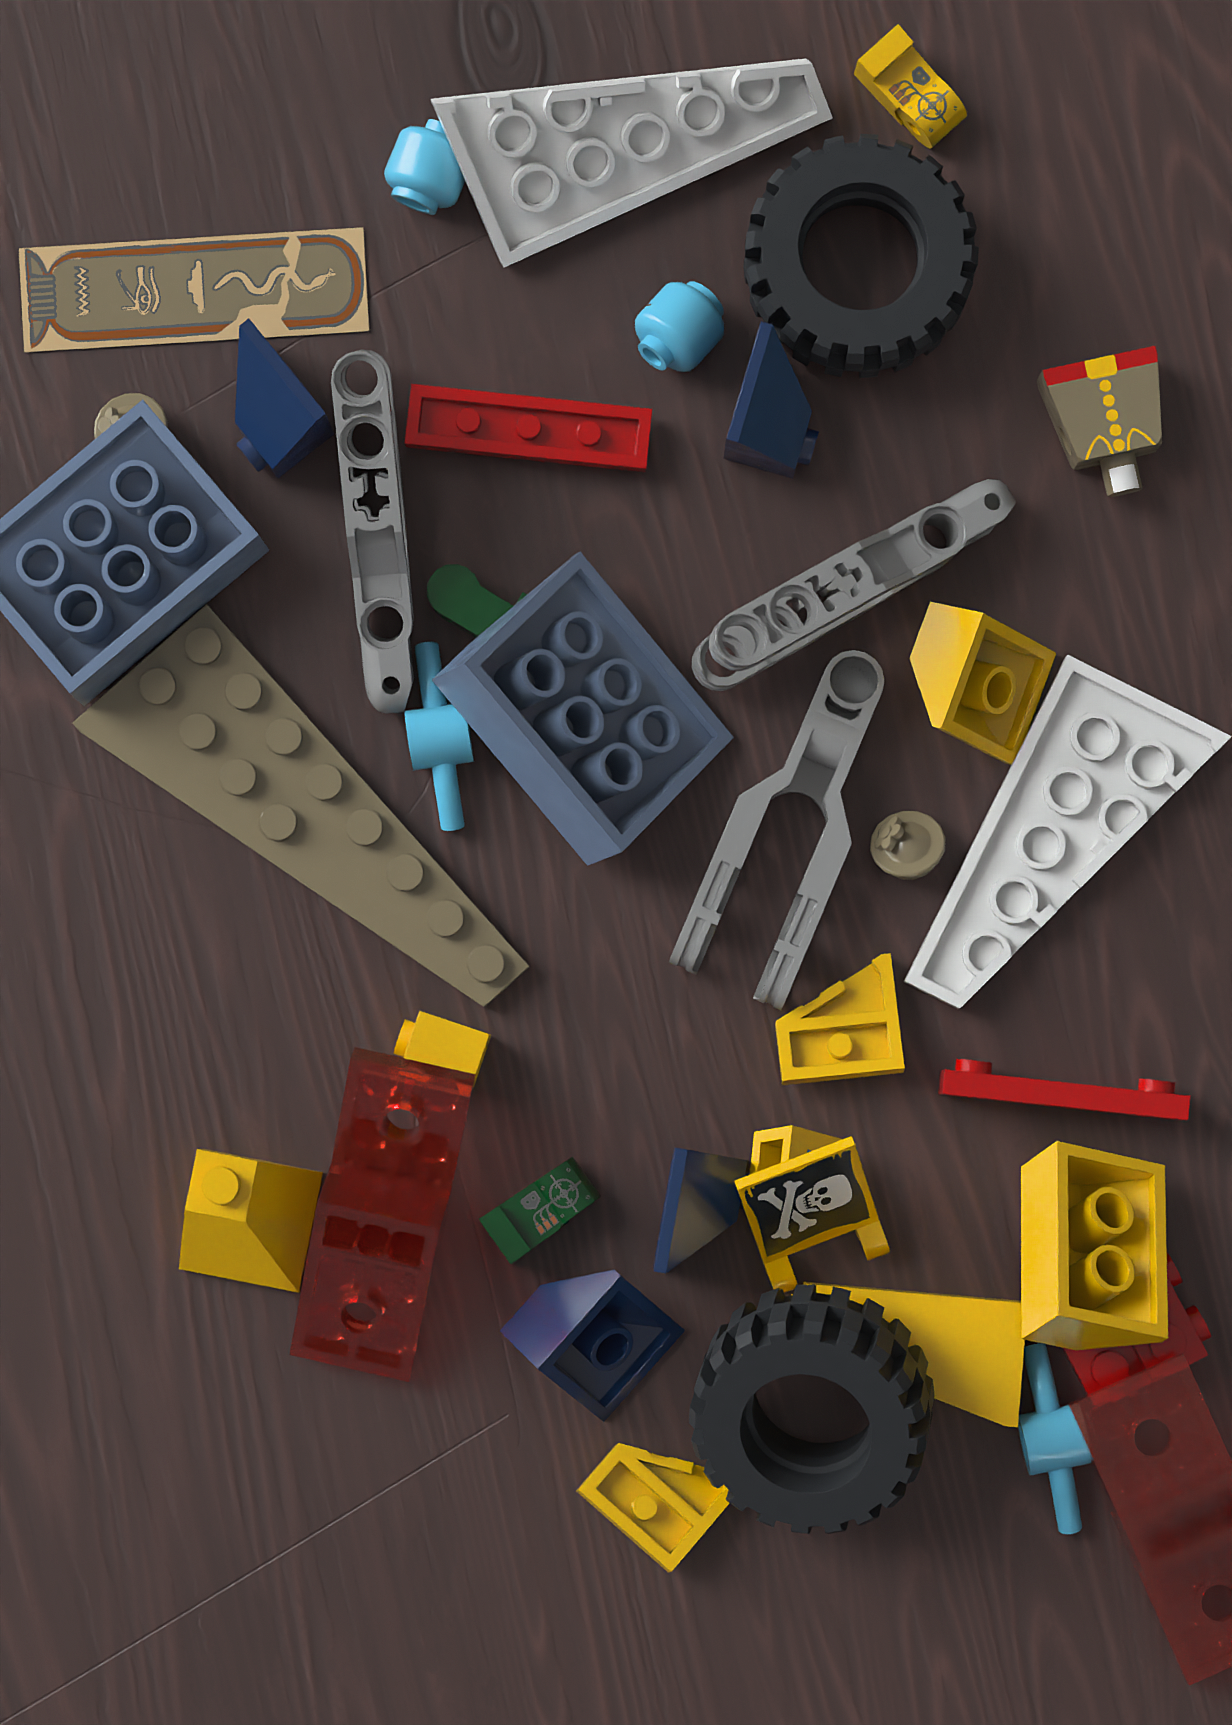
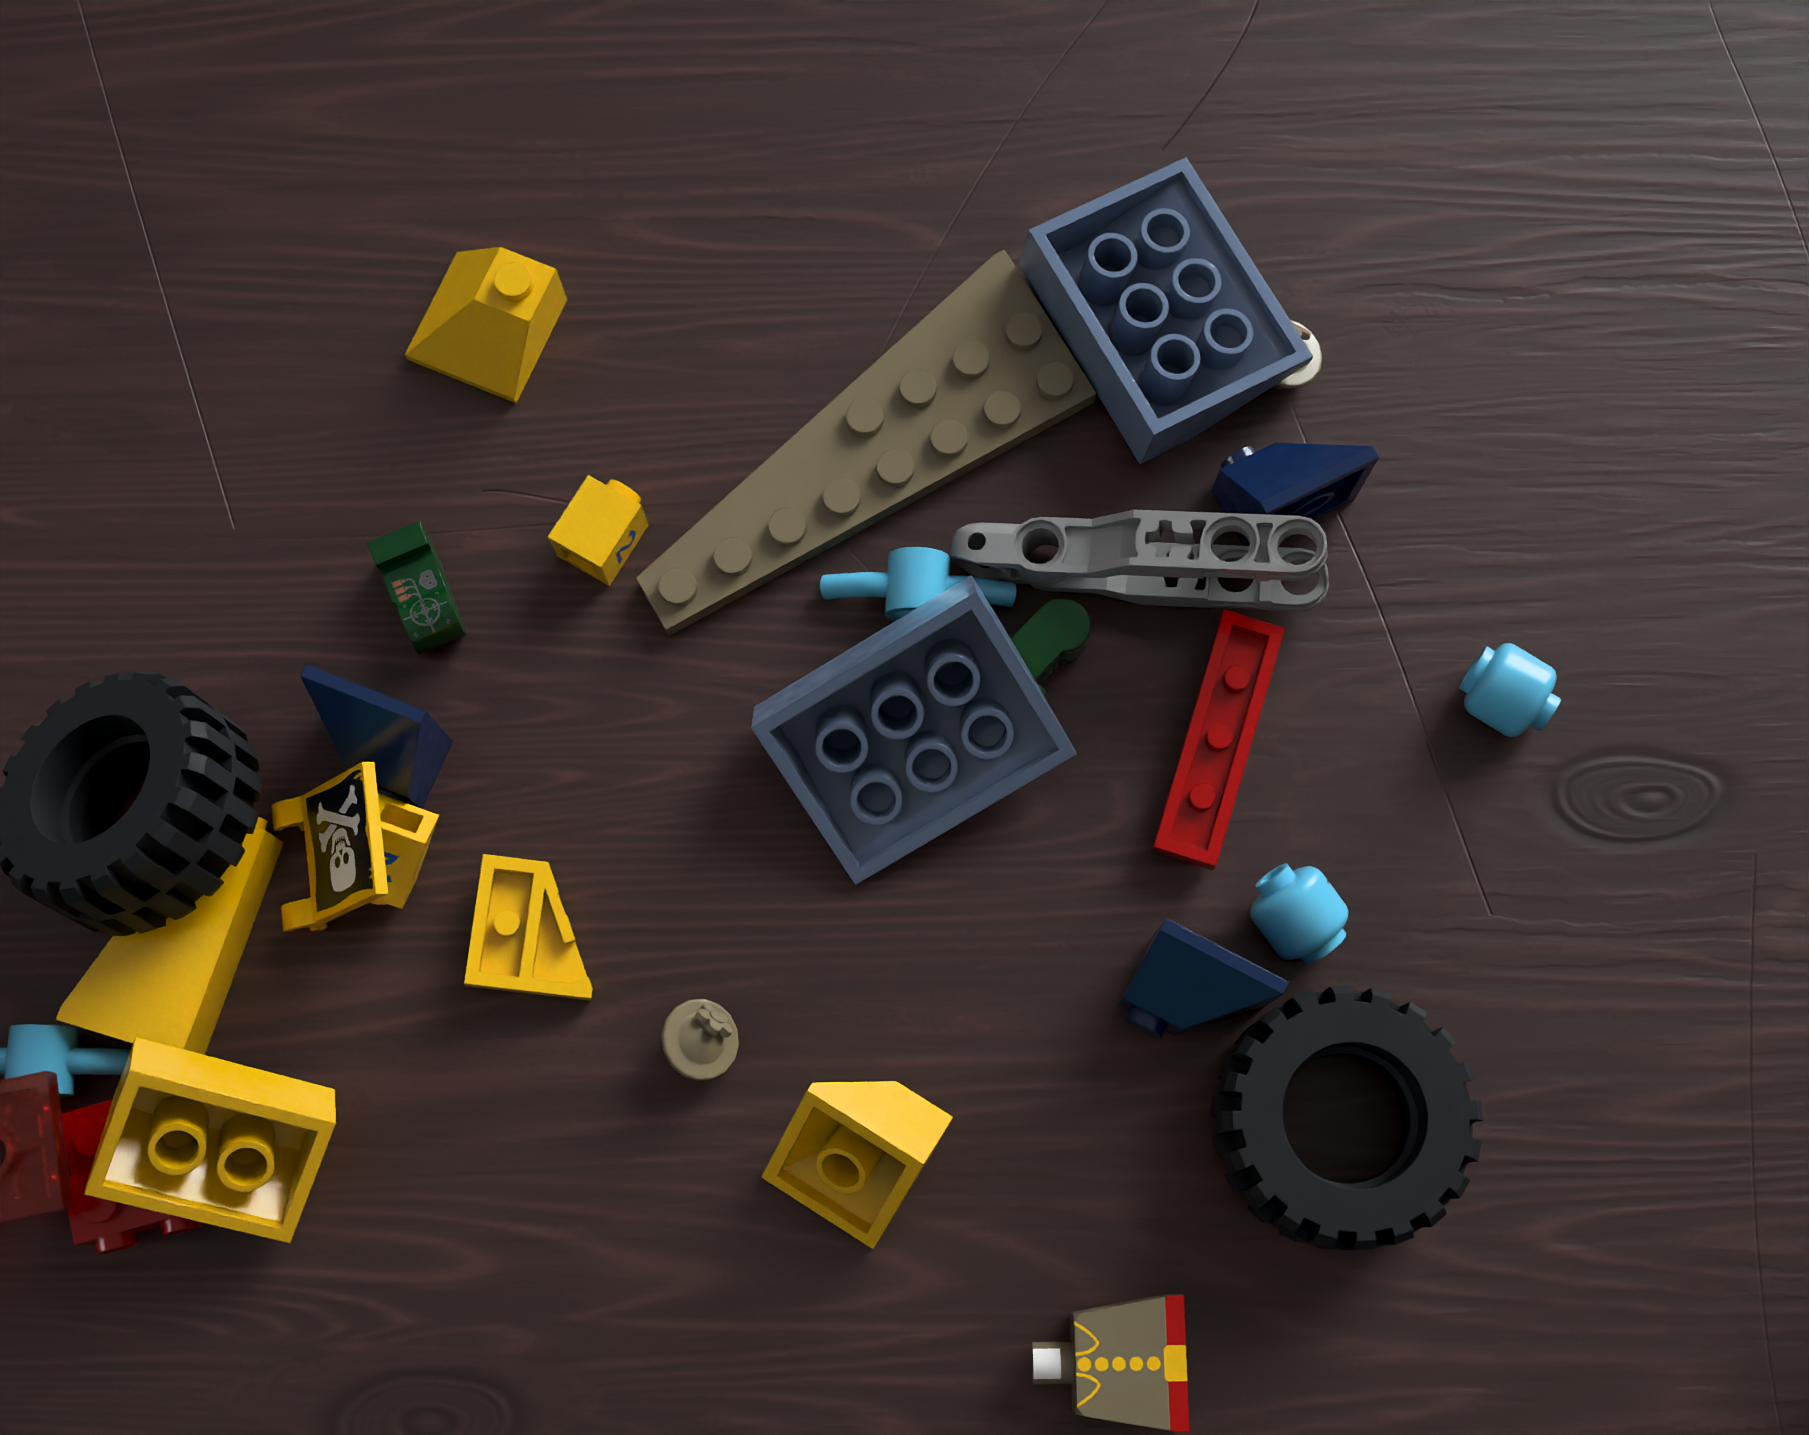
camera: 100 degrees right, 10 degrees down
(193, 289) = (1422, 430): sticker -> none
(381, 1214) = (451, 431): clear red bracket -> none
(589, 151) = (1503, 857): white wing -> none
(592, 1337) = (274, 609): dark blue slope -> none
(655, 1501) = (102, 635): yellow wing -> none
(814, 769) = (806, 962): light grey piece -> none
(856, 580) = (995, 1049): light grey piece -> none
(910, 88) = (1524, 1218): yellow leg -> none
(1072, 798) = (710, 1230): white wing -> none
(1151, 1099) = (364, 1242): red plate -> none

